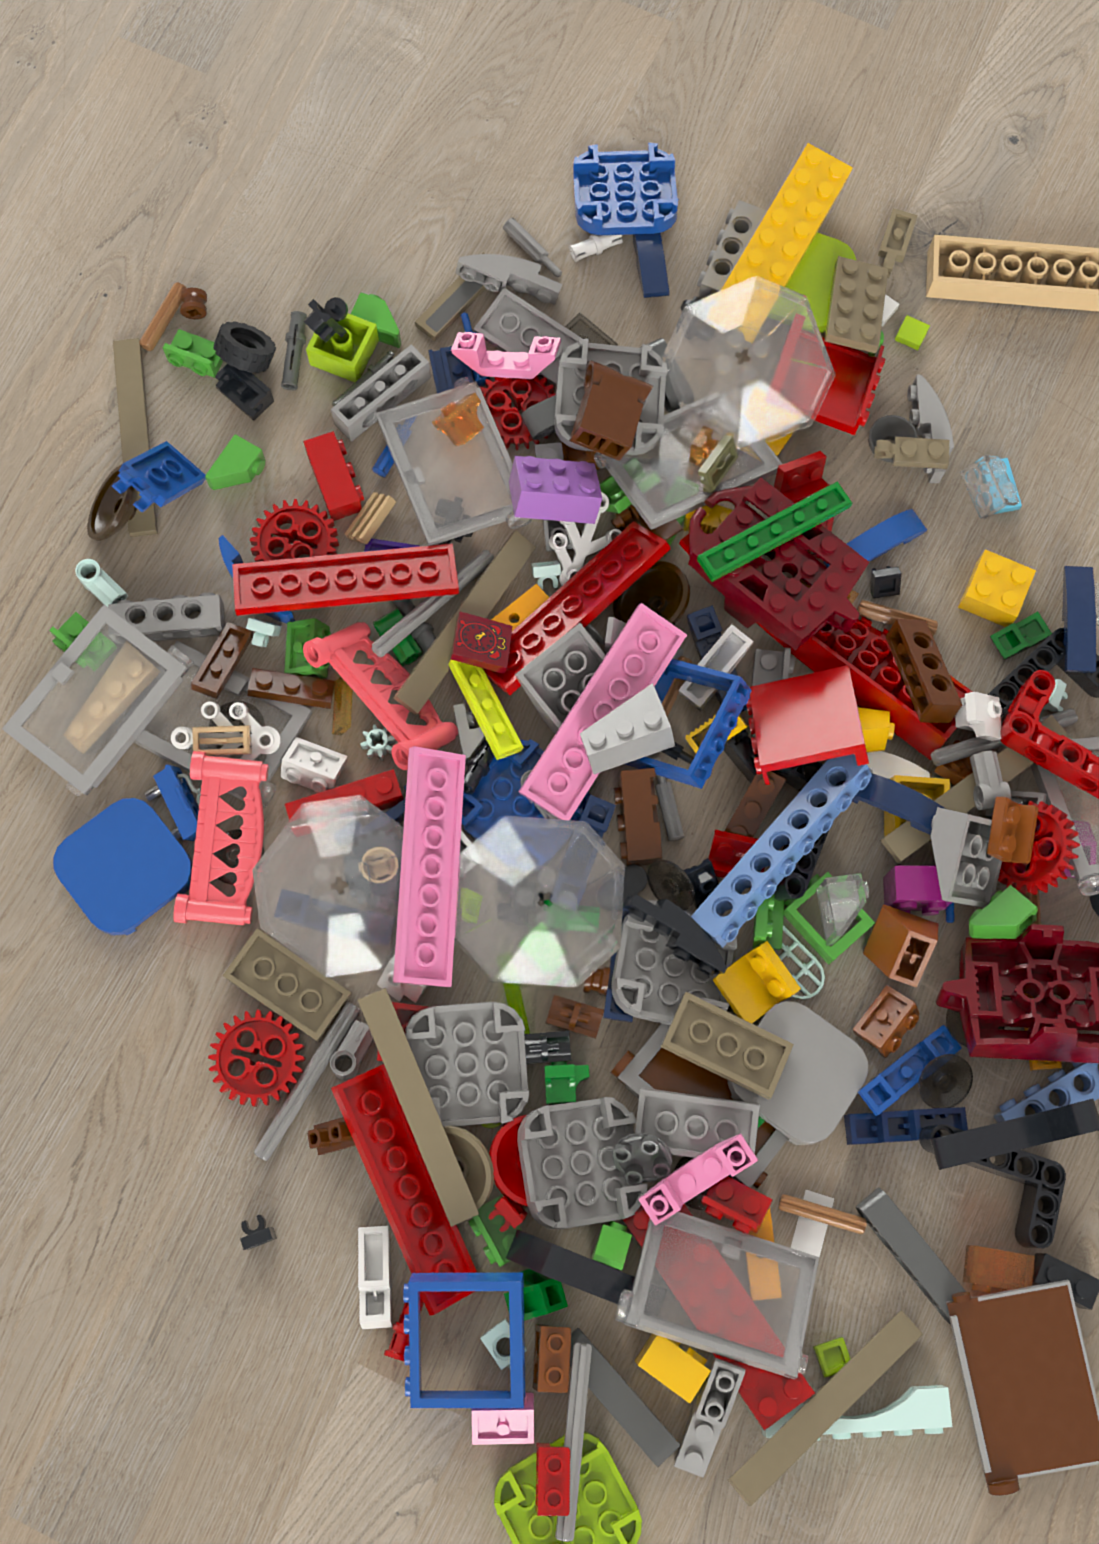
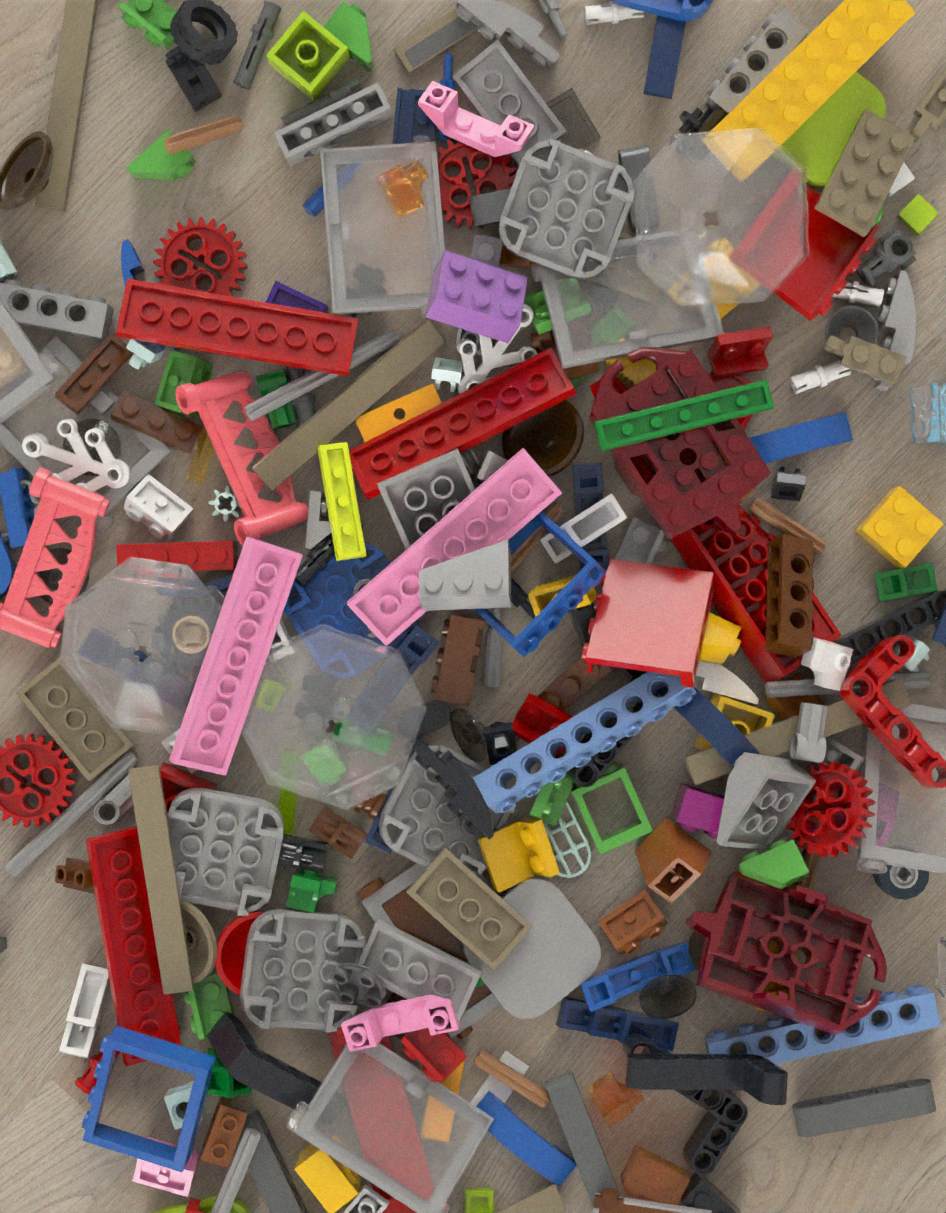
camera: 20 degrees right, 15 degrees up
(159, 476) = (77, 158): blue tile -> none
(246, 740) = (94, 468): tan tile -> none
(267, 431) = (203, 134): none -> medium nougat axle
(325, 320) = (294, 32): black hips -> none
(334, 475) = (260, 202): red brick -> none
(370, 518) = (285, 260): tan tile -> none
(481, 642) = (355, 436): dark red tile -> none
(512, 1212) = (223, 996): red tile -> none
(609, 411) = (557, 230): reddish brown piece -> none
(612, 1245) = (306, 1053): bright green slope -> none
(702, 445) = (644, 290): clear orange tile -> none
(718, 463) = (653, 318): olive tile -> none
(840, 902) = (622, 811): clear slope -> none
(860, 1274) = (526, 1142): none -> blue slope
(878, 484) = (818, 376): none -> white pin
(884, 407) = (863, 294): none -> white pin
(898, 372) = (886, 258): none -> dark grey connector
(929, 1202) = (614, 1098): none -> clear orange brick
(1012, 831) = (812, 792): dark orange bracket -> none

